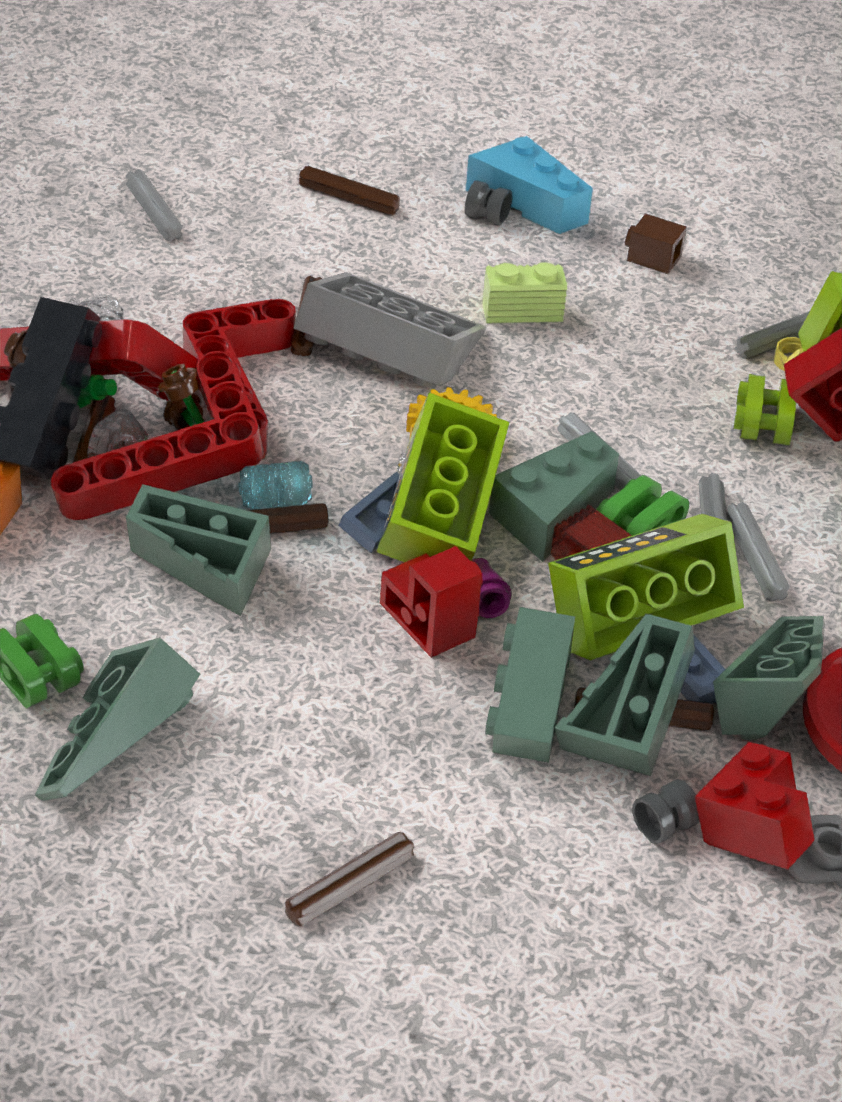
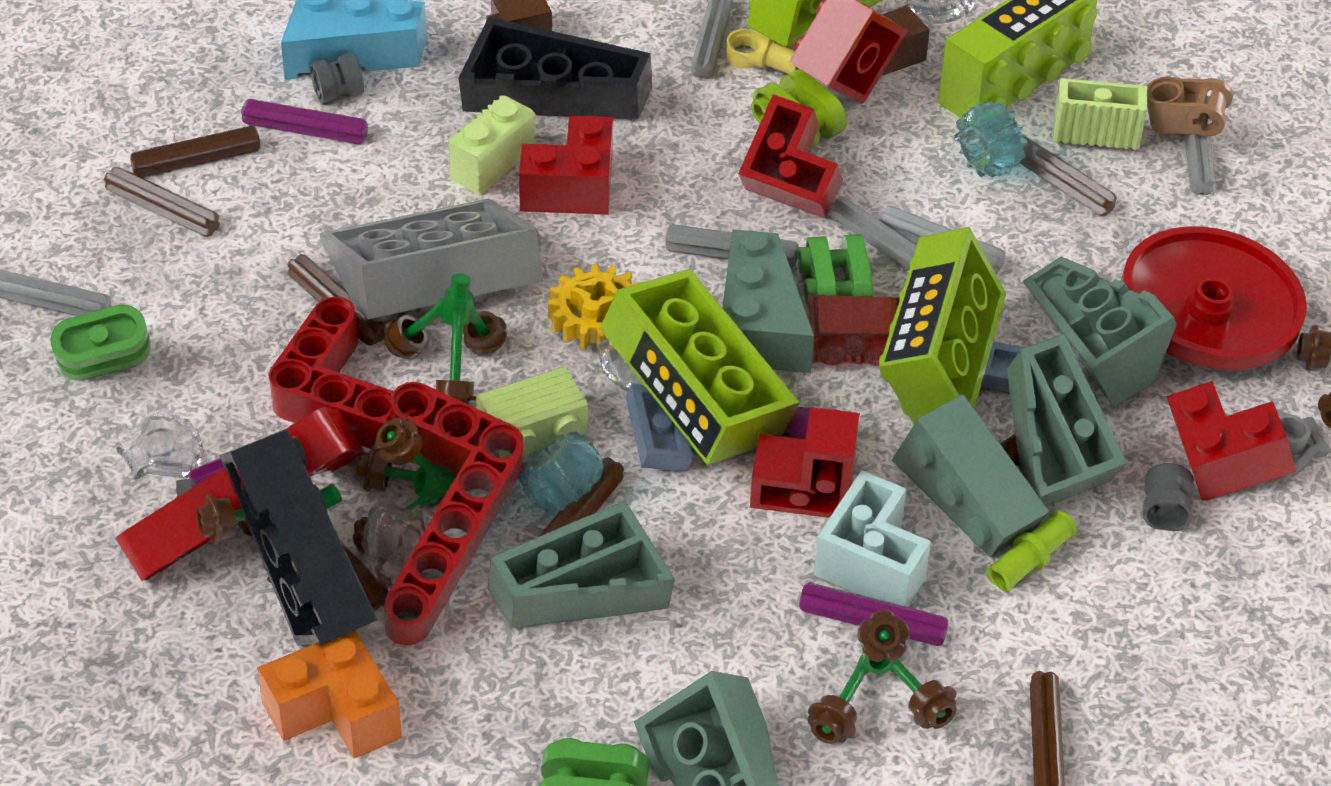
camera: 45 degrees left, 5 degrees up
(131, 240) = (101, 342): none -> bright green brick
(289, 203) = (162, 201): none -> axle
(301, 713) = (881, 646): none -> reddish brown plant
(311, 362) = (481, 331): none -> plant
(328, 447) = (538, 407): none -> yellowish green brick
(355, 717) = (855, 608): none -> magenta axle
(400, 664) = (867, 548): none -> light aqua brick
(438, 216) = (304, 121): none -> magenta axle
(517, 765) = (1031, 550): none -> lime pin
(554, 344) = (570, 175): none -> red brick
(623, 281) = (554, 73): none -> black wedge
(701, 415) = (780, 160): none -> red brick

